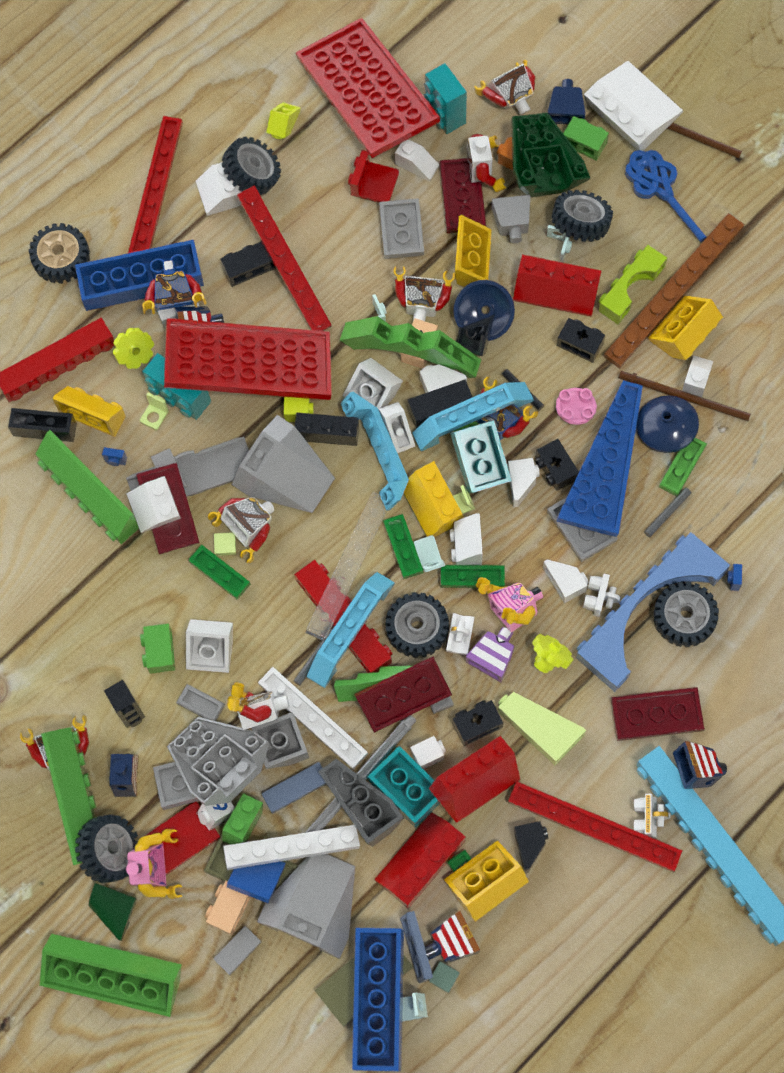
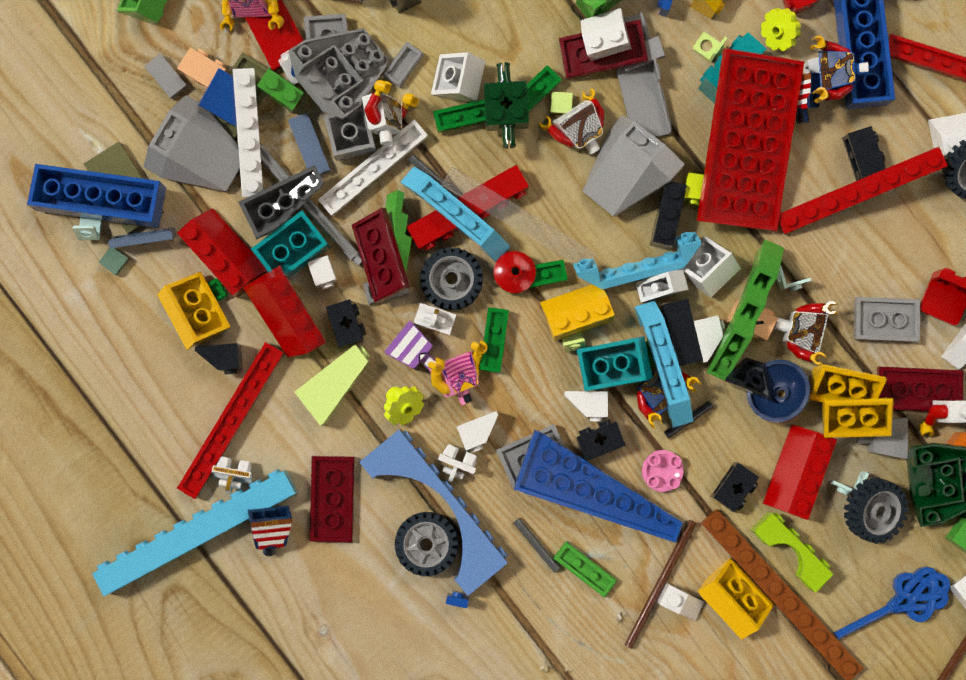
camera: 90 degrees right, 15 degrees up
(158, 648) = (461, 28): bright green brick -> none
(247, 633) = (460, 116): none -> green plate
(249, 590) = (506, 92): none -> dark green brick
(405, 572) = (510, 282): none -> red dish
(428, 553) = (521, 301): light aqua bracket -> none
(452, 940) = (143, 272): torso -> none
(467, 541) = (527, 338): white slope -> none
(500, 237) = (857, 417): none -> yellow slope
(667, 434) = (617, 566): dark blue dish -> none

